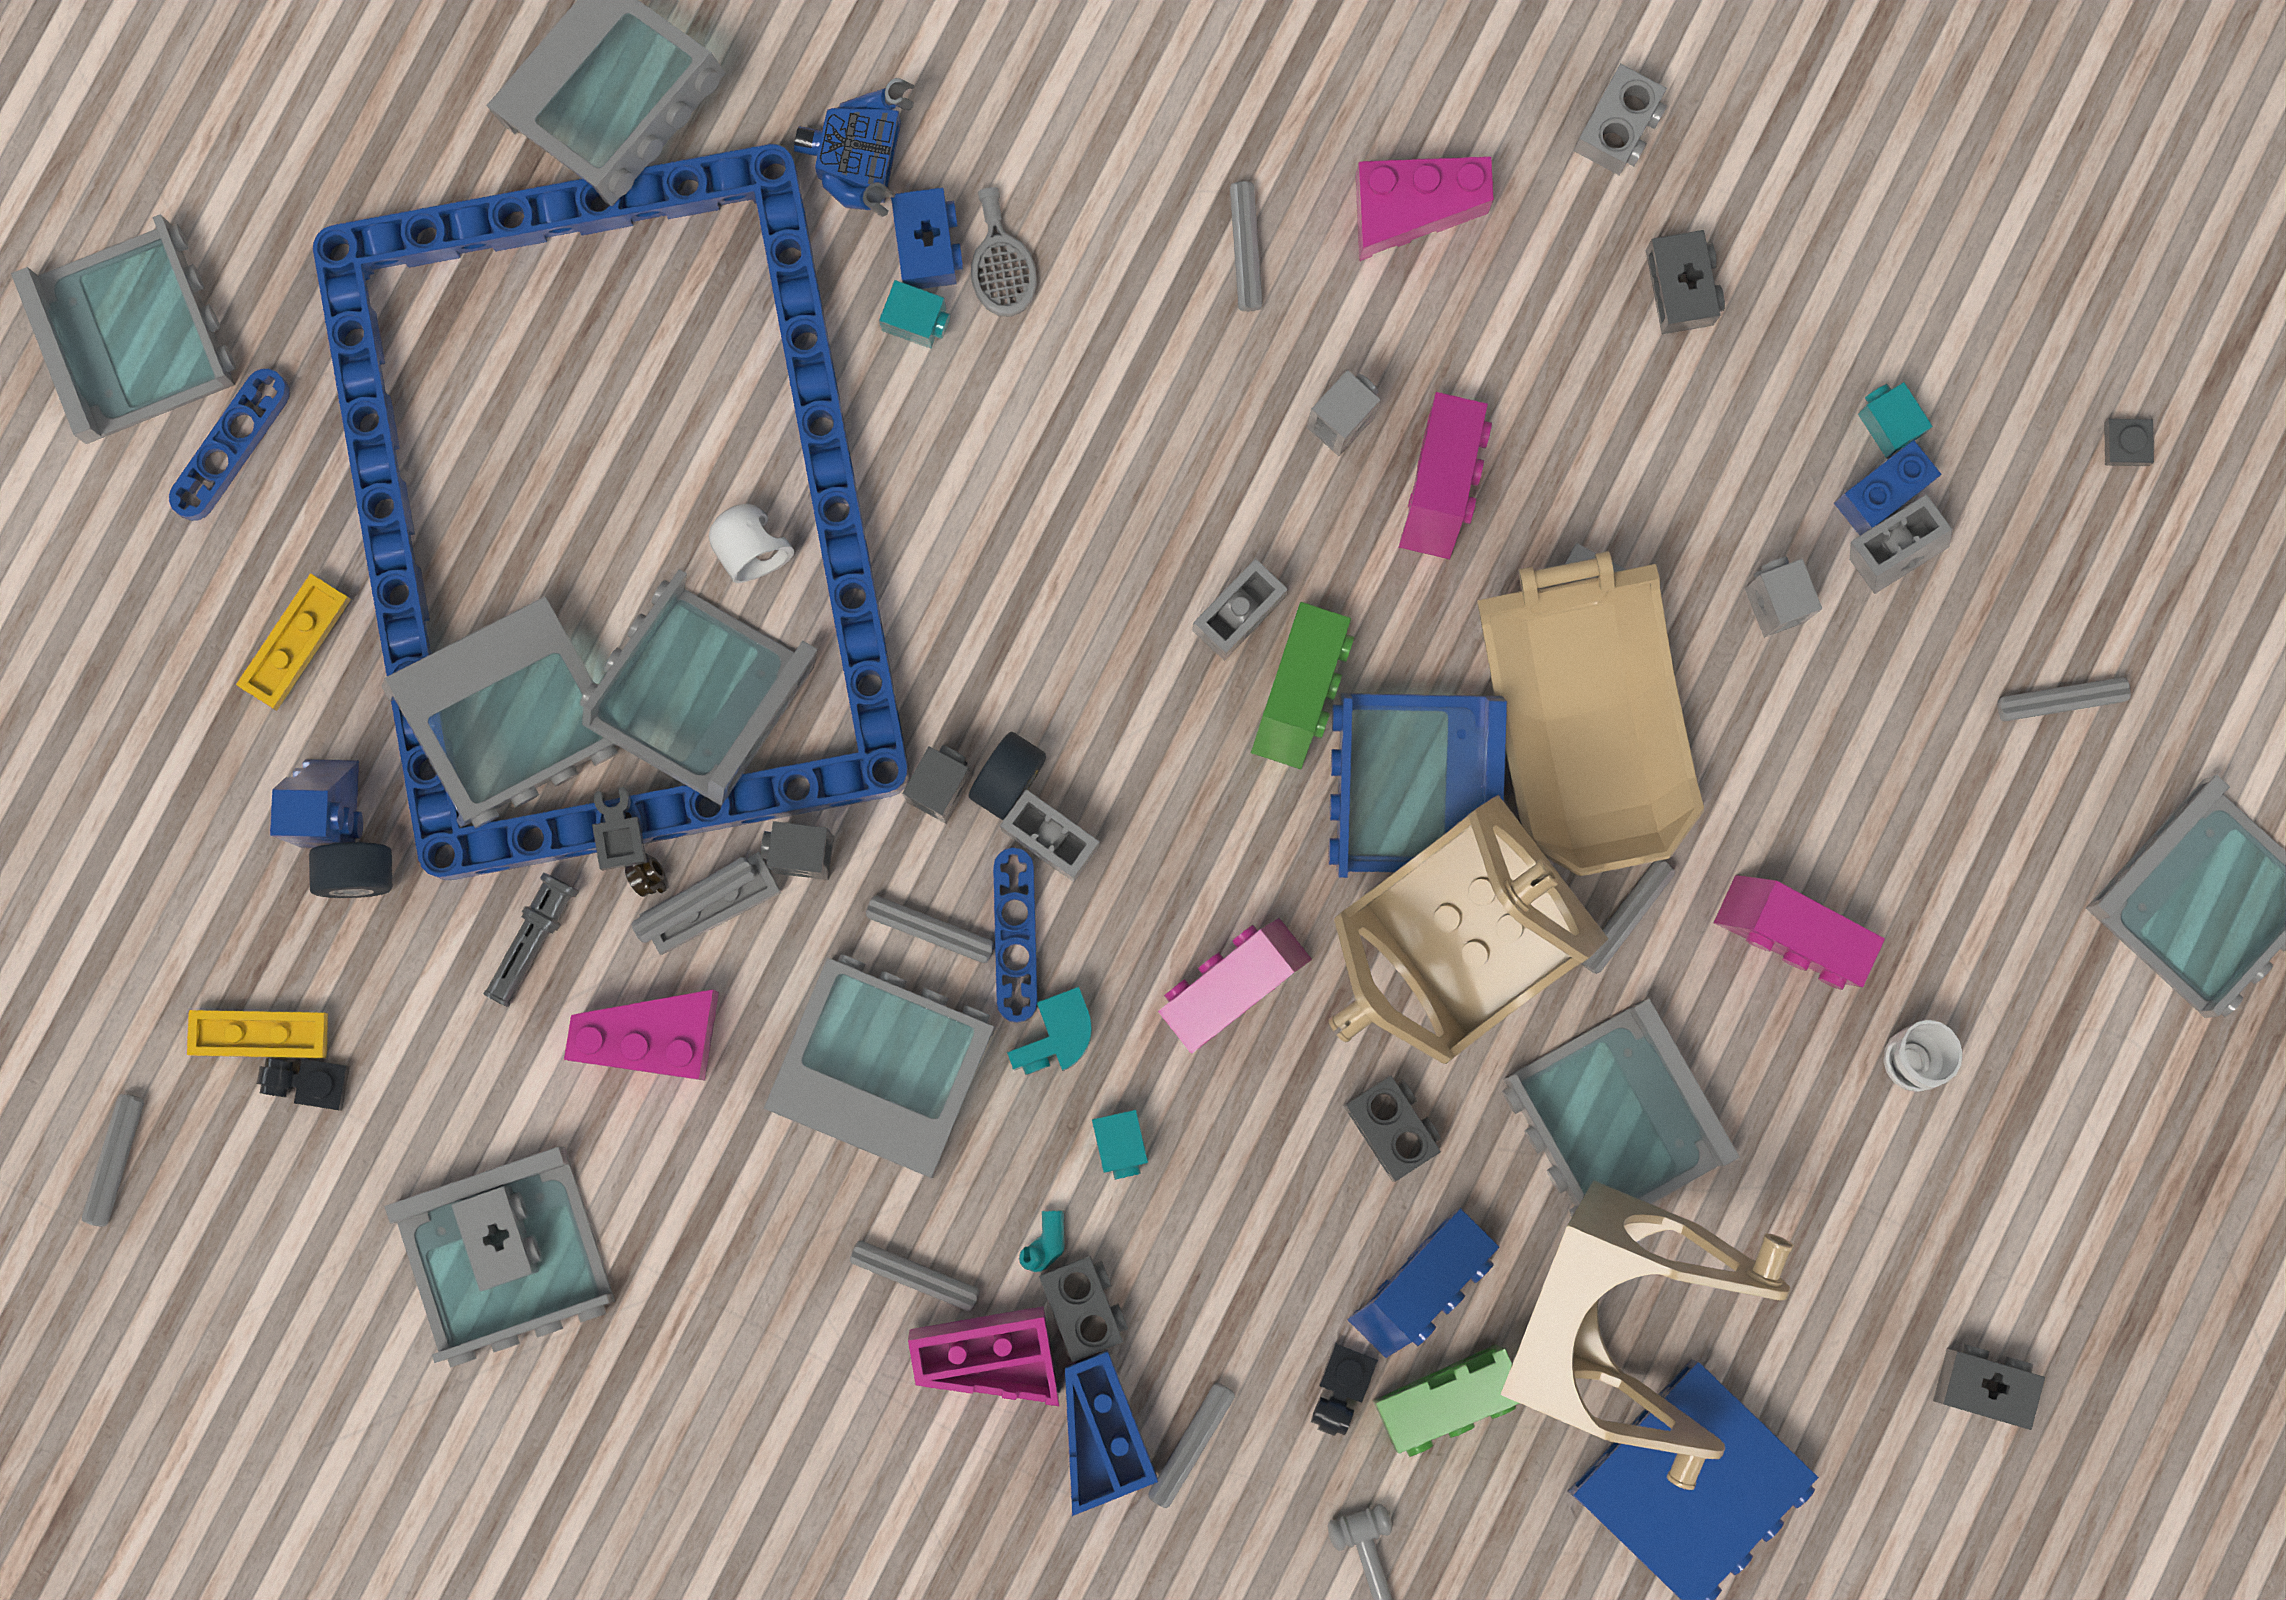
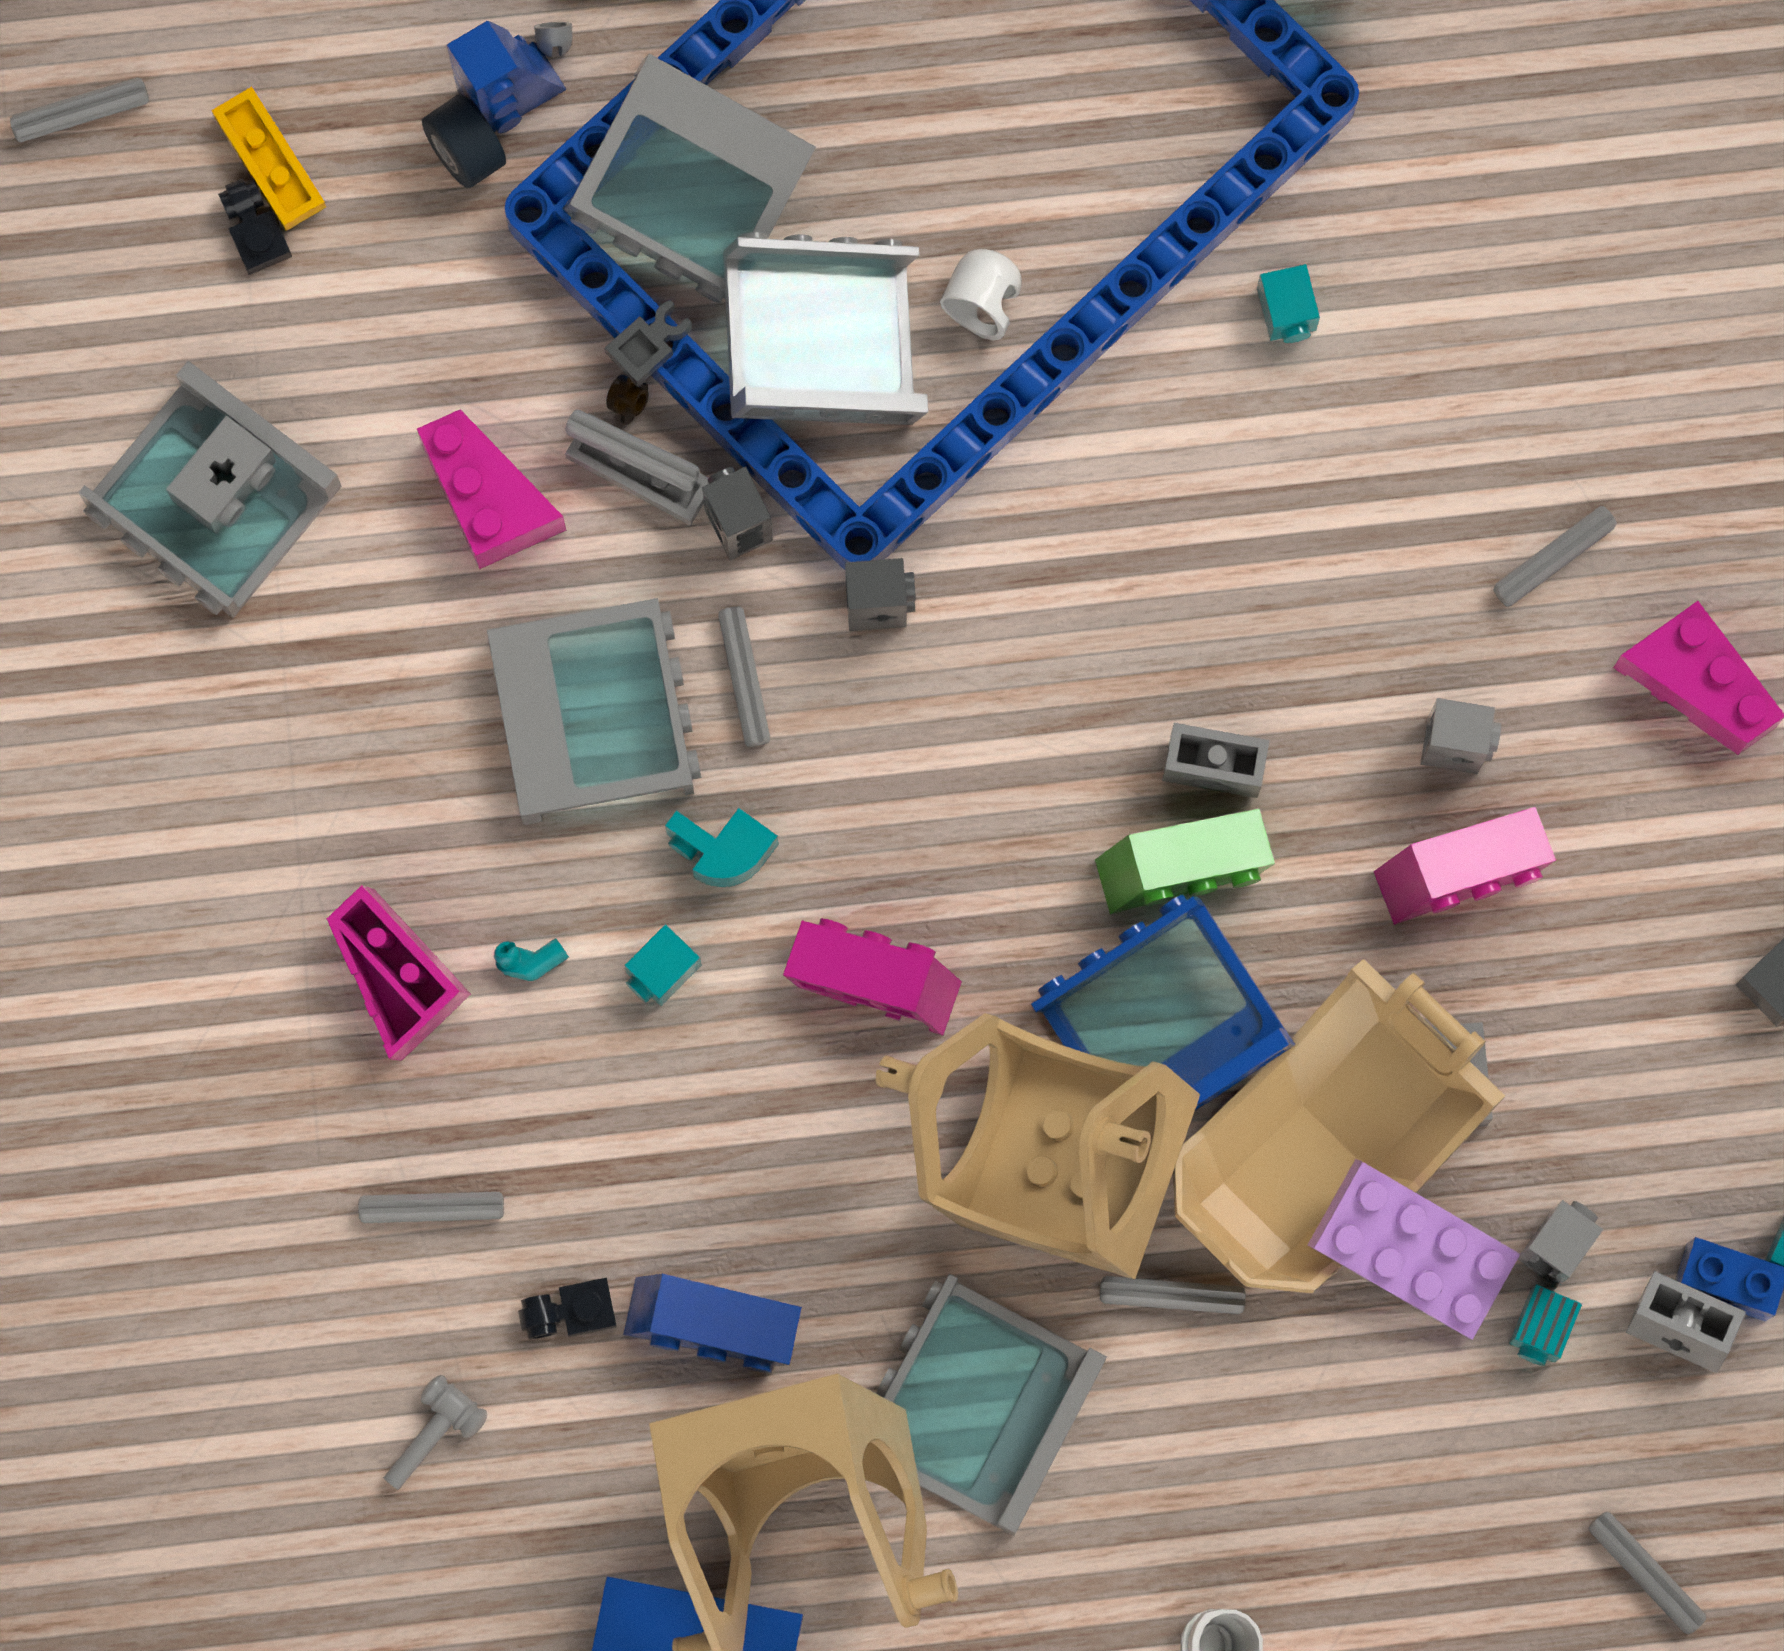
camera: 60 degrees right, 5 degrees down
(309, 742) = (553, 35): none -> light grey hinge
(539, 920) = (527, 333): dark grey pin -> none
(858, 146) = (1406, 157): torso -> none
(914, 1275) = (424, 863): light grey axle -> none
(920, 213) = (1376, 246): blue brick -> none
(989, 198) = (1425, 317): light grey piece -> none
(1007, 775) = (926, 651): black wheel -> none
(1009, 935) = (792, 760): blue beam -> none
(1050, 835) = (897, 724): light grey brick -> none
(1072, 1311) = (480, 1021): dark grey brick -> none
(1103, 1436) = (389, 1117): blue wedge -> none
(1382, 1134) = (825, 1198): dark grey brick -> none
(1447, 1401) = (609, 1403): bright green wedge -> none
(1716, 711) = (1413, 1249): none -> lavender plate
(1799, 930) = (1262, 1460): dark pink wedge -> none
(1833, 651) = (1544, 1325): none -> teal brick

